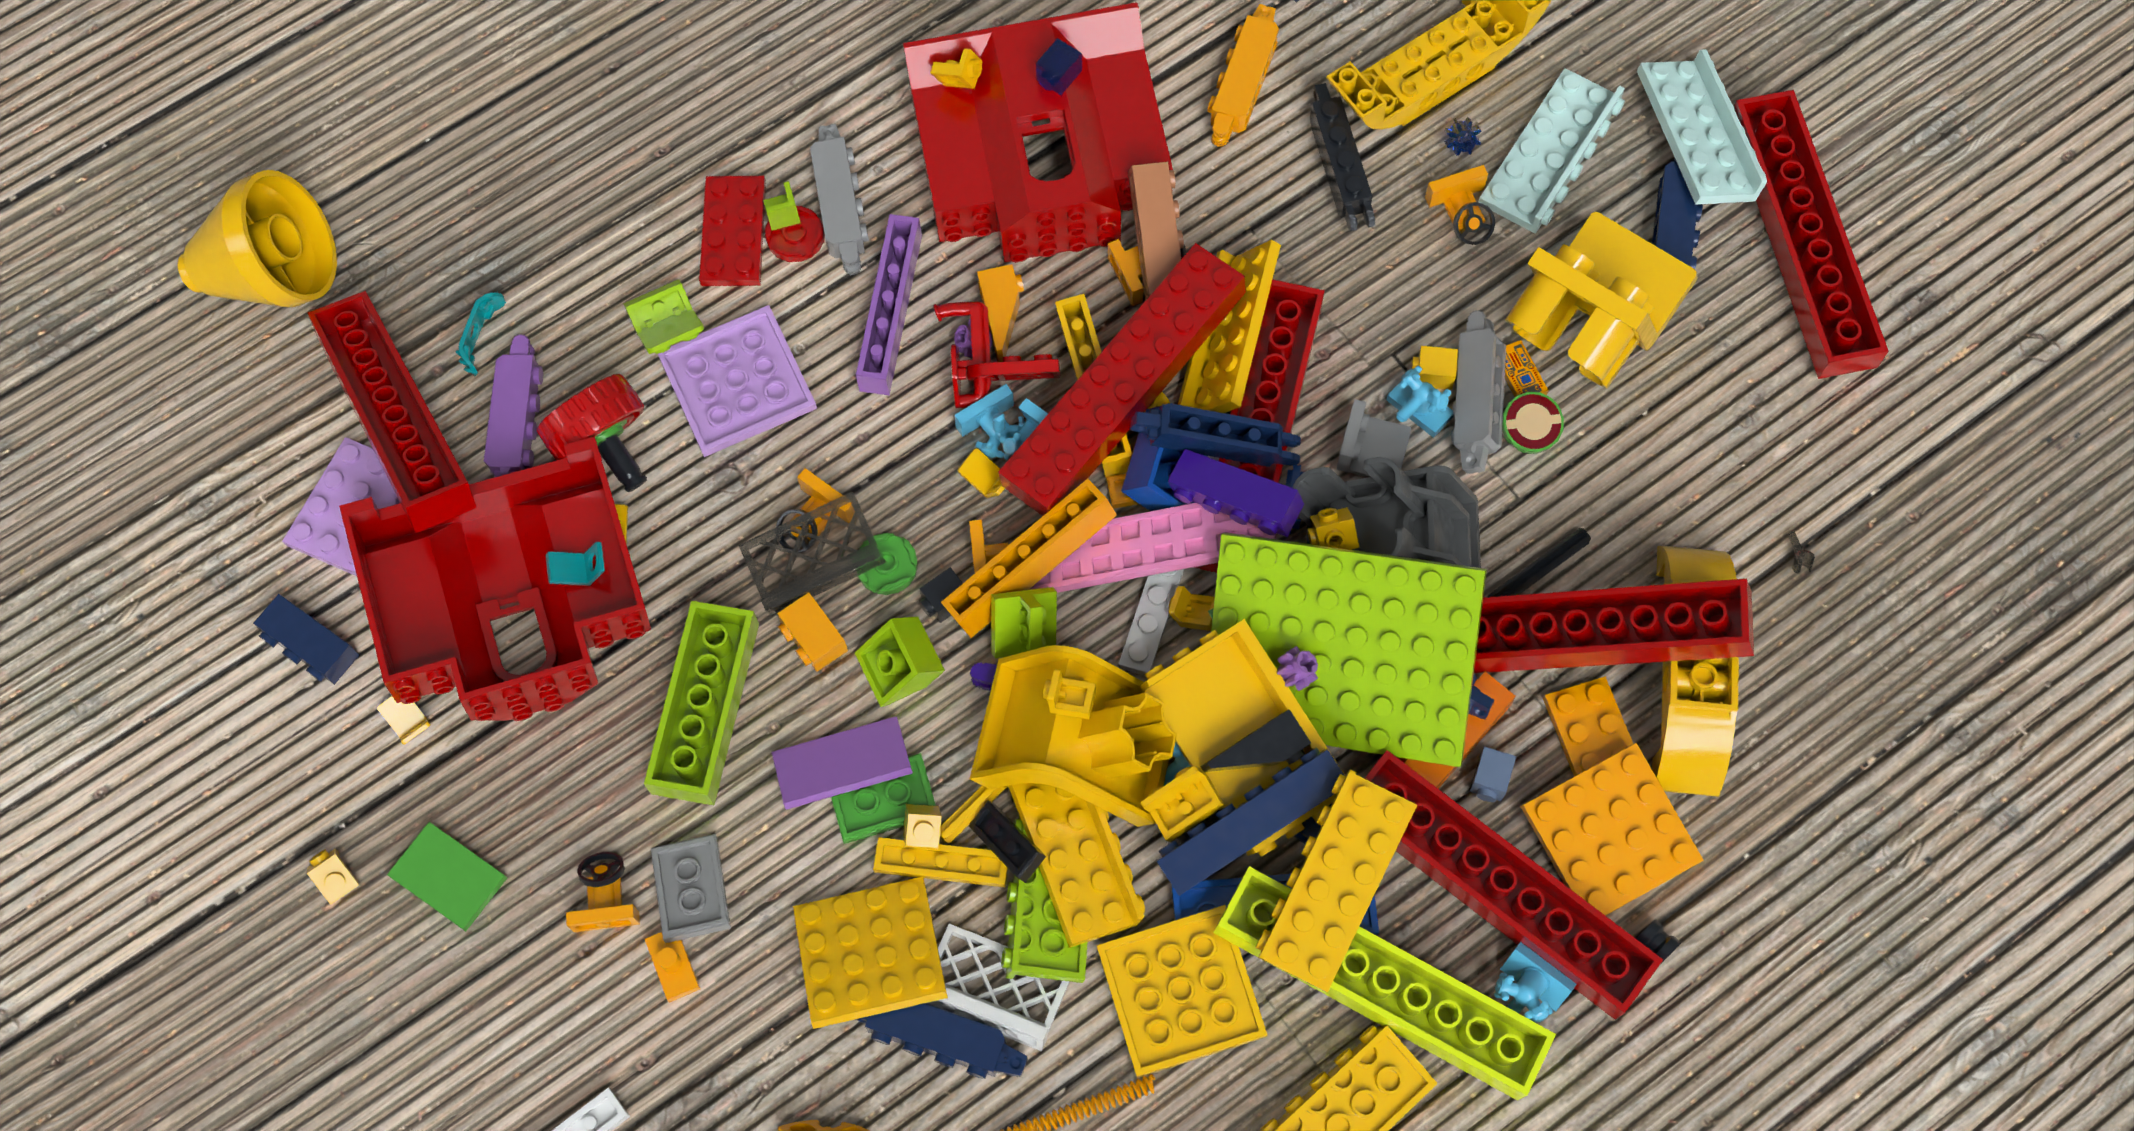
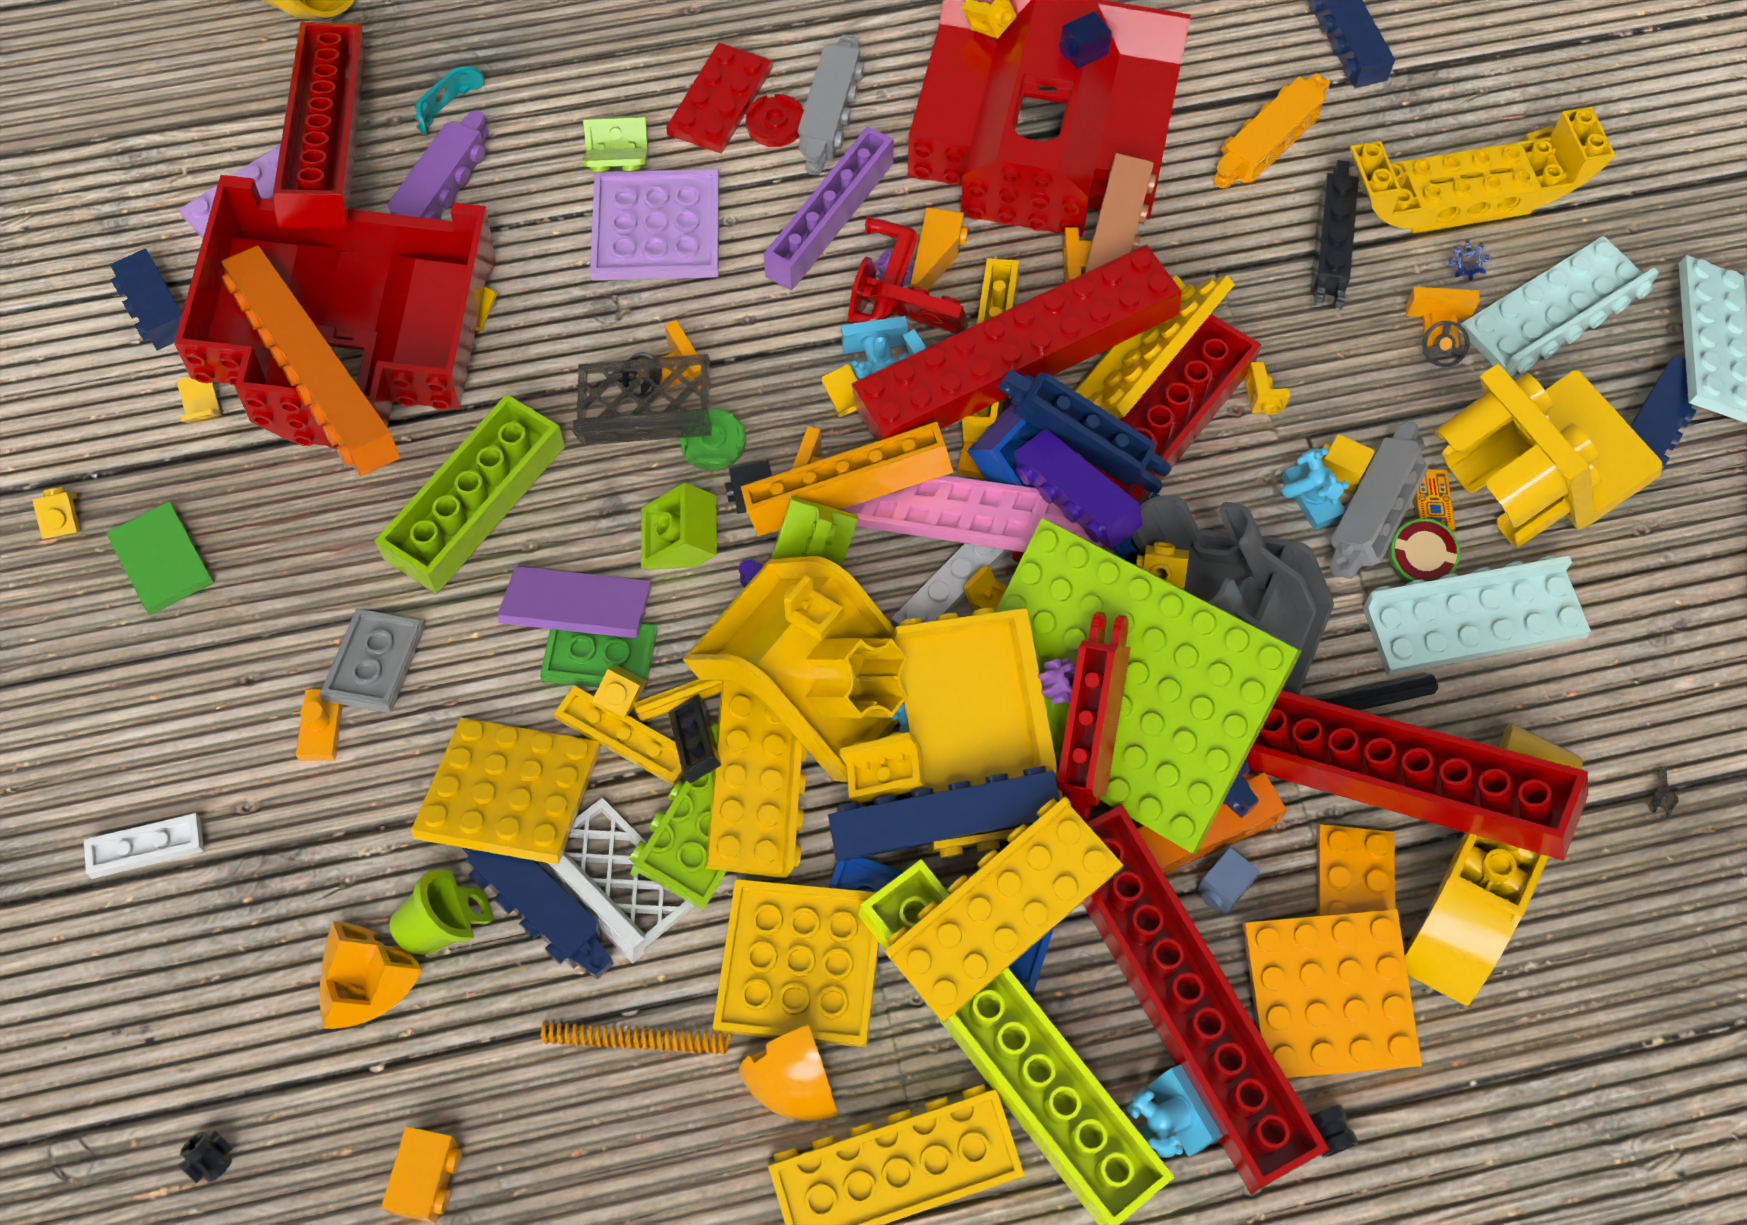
camera: 20 degrees right, 5 degrees down
(514, 648) = (309, 362): none -> orange brick
(575, 567) = (412, 321): teal bracket -> none
(600, 412) = (515, 200): red wheel -> none
(604, 896) = (291, 636): light orange piece -> none
(782, 209) = (770, 92): lime panel -> none
(812, 632) = (608, 471): light orange brick -> none
(864, 1083) = (437, 914): none -> lime container
(1219, 1088) = (790, 1078): none -> light orange brick
(1268, 745) = (993, 746): black slope -> none
(1337, 330) = (1261, 393): none -> yellow bracket
(1337, 687) = (1094, 715): none -> red hinge
(1371, 438) = (1240, 488): light grey bracket -> none
(1594, 461) = (1475, 615): none -> light aqua bracket

